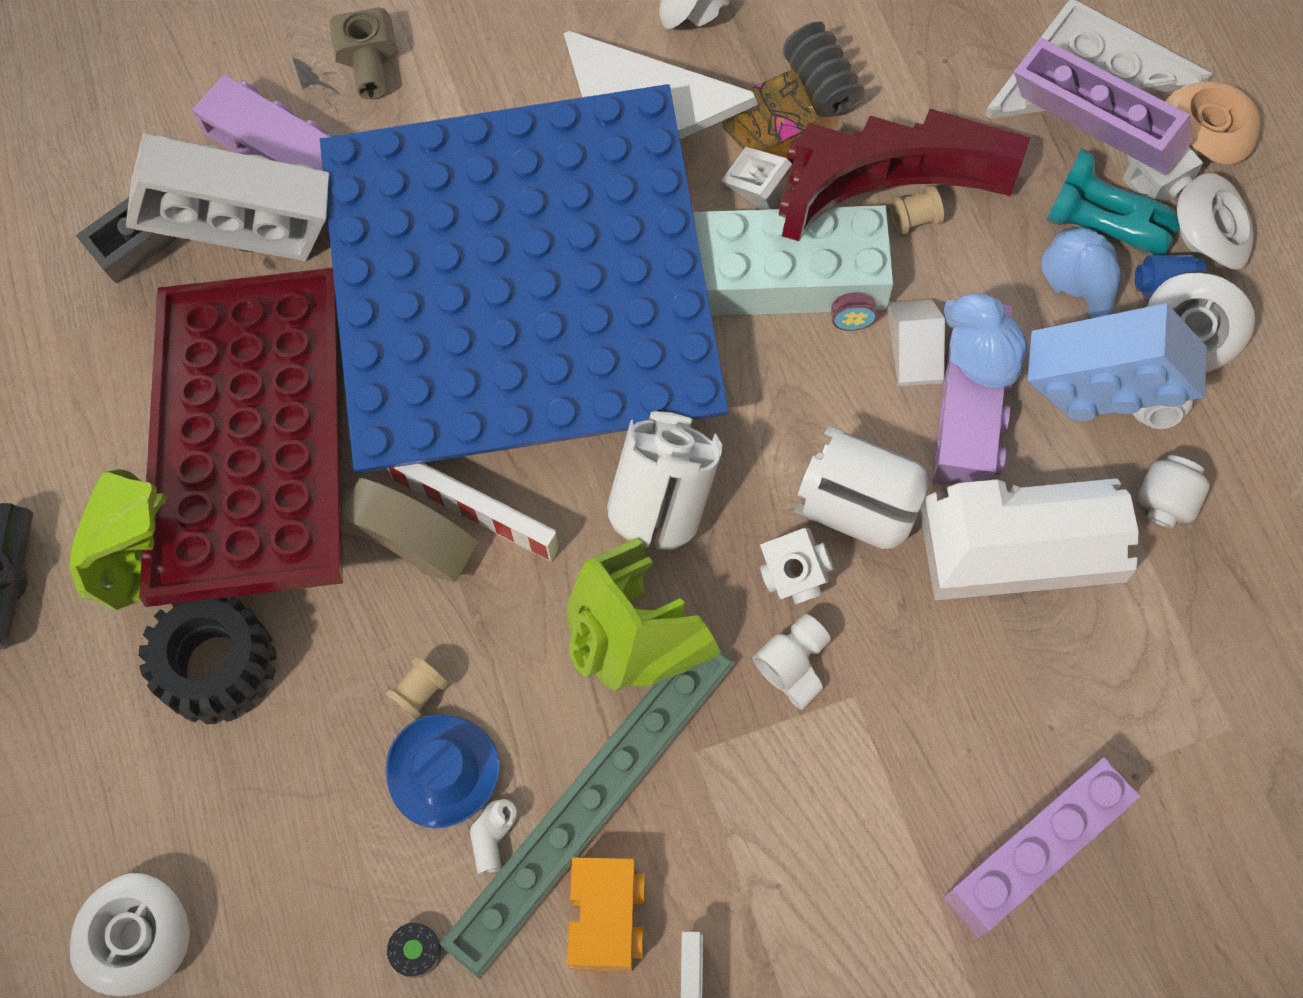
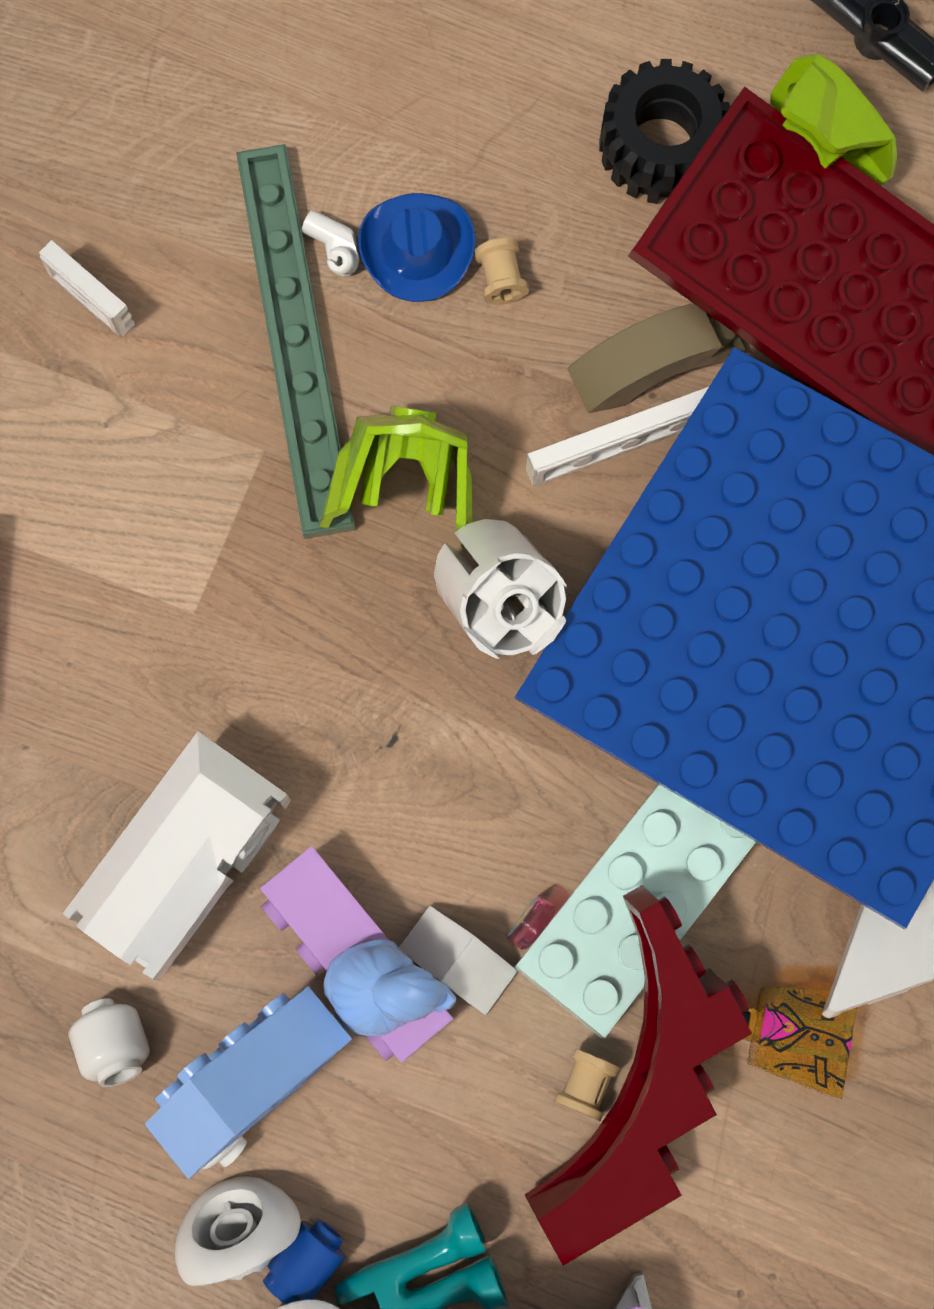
camera: 125 degrees right, 10 degrees up
(414, 950) = (298, 126): black tile -> none
(606, 930) = (205, 282): light orange brick -> none
(758, 177) = (748, 953): white slope -> none
(779, 556) = (335, 647): white brick -> none
(786, 660) = (267, 575): white piece -> none
(823, 70) = (821, 1134): dark grey piece -> none
(863, 490) = (346, 758): white cylinder -> none
(1084, 268) = (391, 1189): light blue hair -> none

